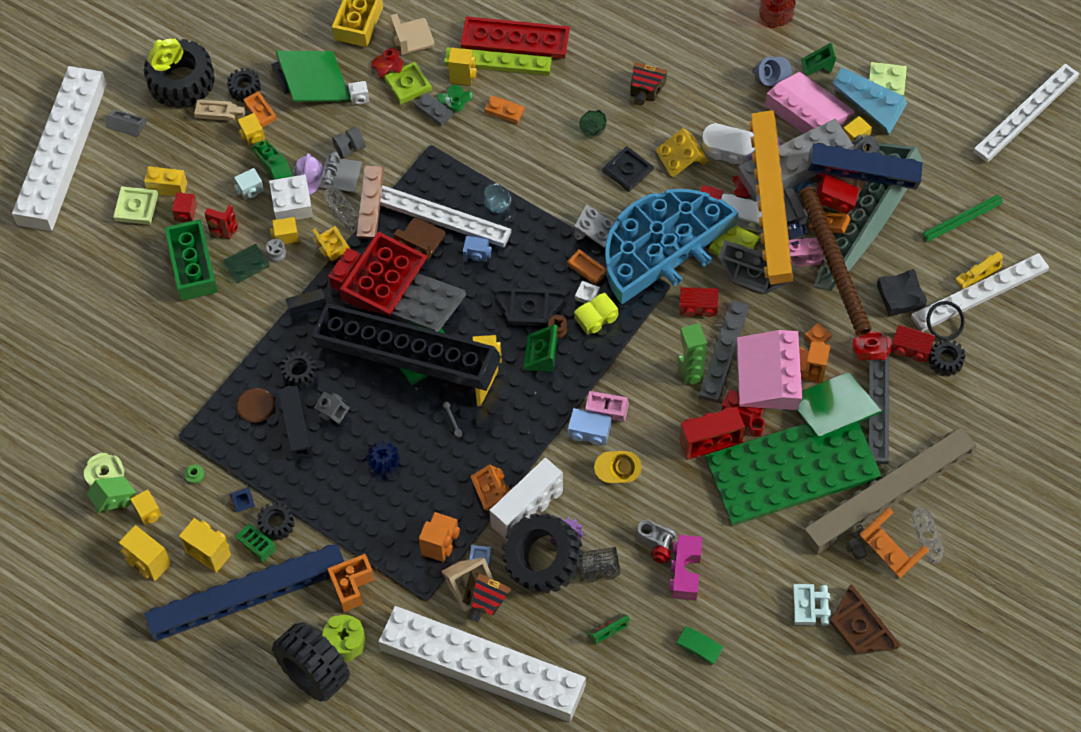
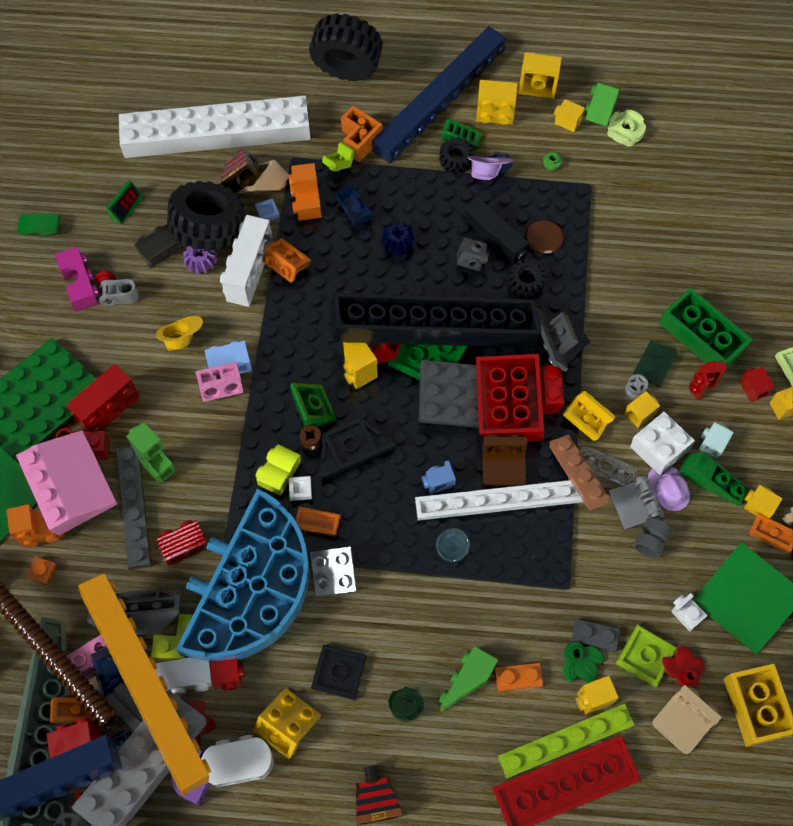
camera: 150 degrees right, 5 degrees up
(254, 485) = (487, 168): none -> lavender piece
(314, 297) = (557, 337): none -> dark grey bracket
(352, 630) = (337, 94): lime brick -> none
(386, 562) = (341, 159): none -> lime bracket
(403, 502) = (350, 202): none -> dark blue piece
(538, 120) = (473, 675): none -> bright green slope

